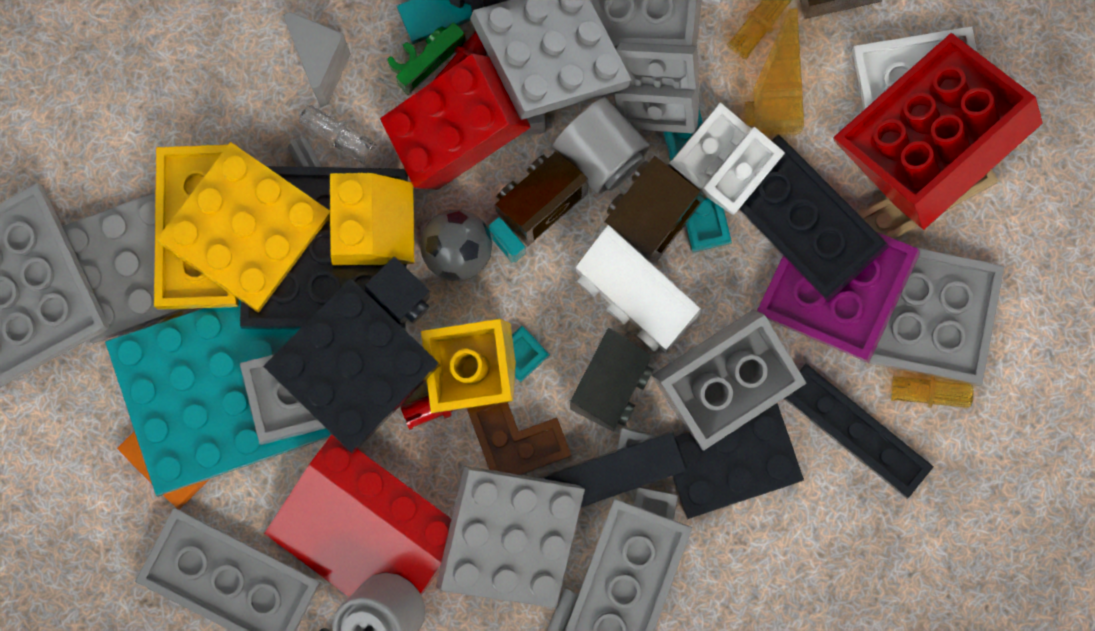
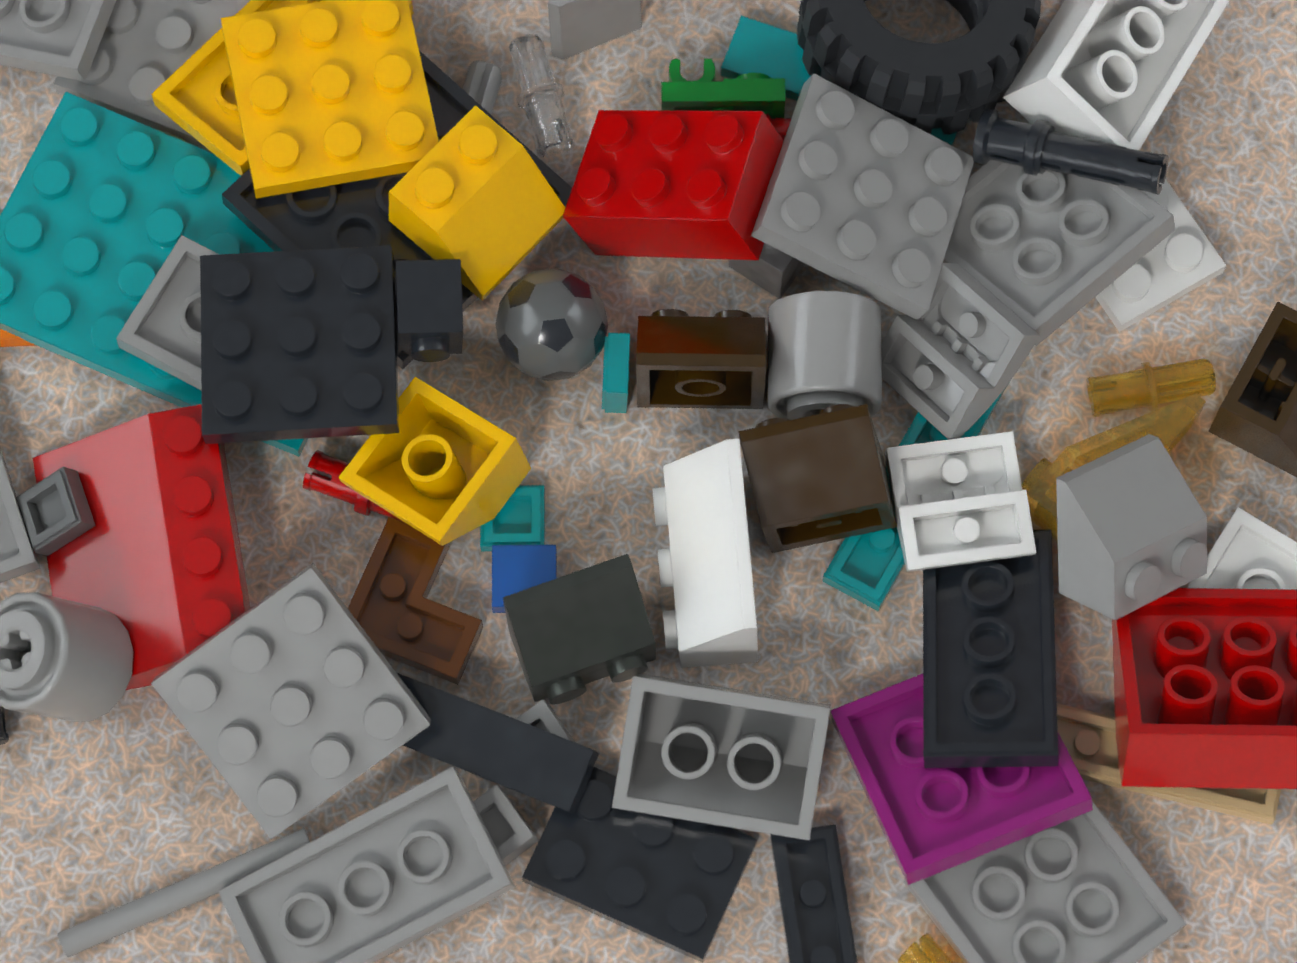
camera: 40 degrees right, 10 degrees down
(304, 549) = (55, 511): none -> dark grey tile
(554, 378) = (519, 569): none -> blue tile
(821, 105) = (1128, 529): none -> light grey slope

